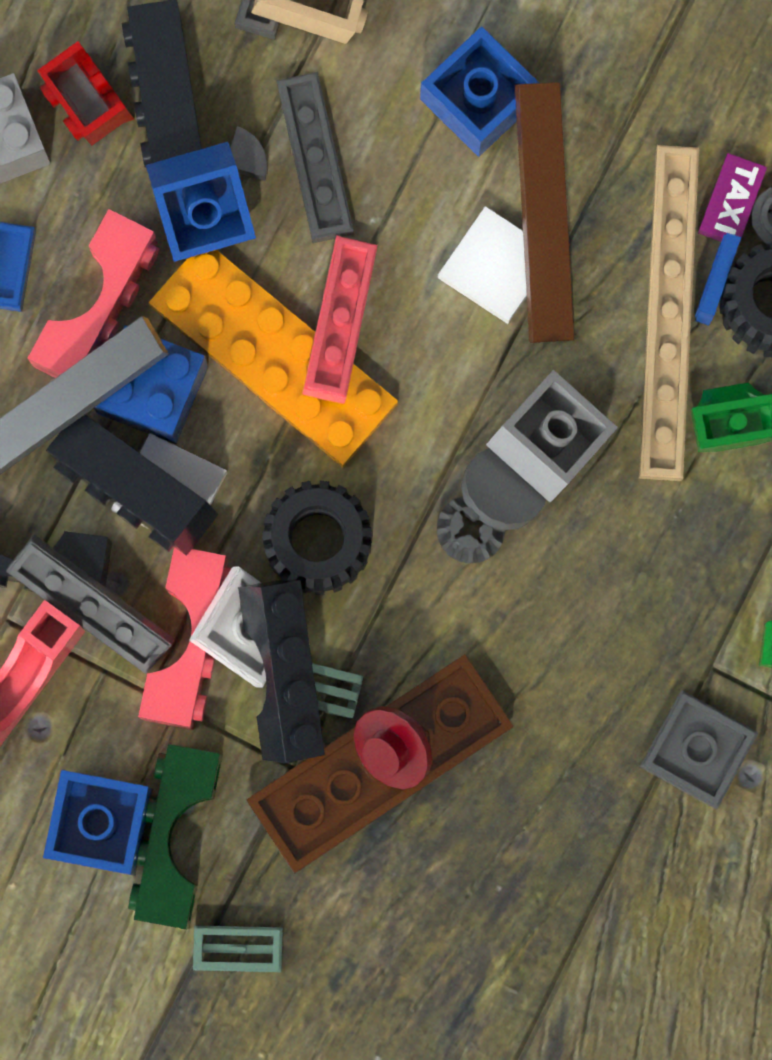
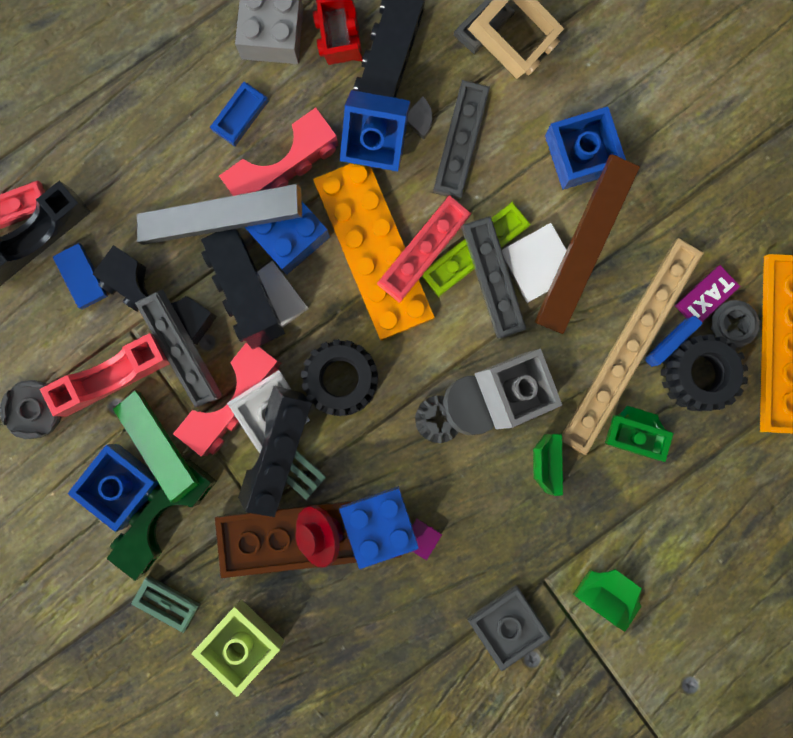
camera: 30 degrees right, 5 degrees up
(122, 744) = (155, 446): none -> tile
(363, 946) = (238, 648): none -> yellowish green brick
(406, 288) = (458, 262): none -> lime tile
(448, 312) = (493, 277): none -> dark grey tile
(465, 696) = (379, 527): none -> blue brick
(527, 693) = (426, 537): none -> magenta tile
(641, 514) = (549, 464): none -> green slope

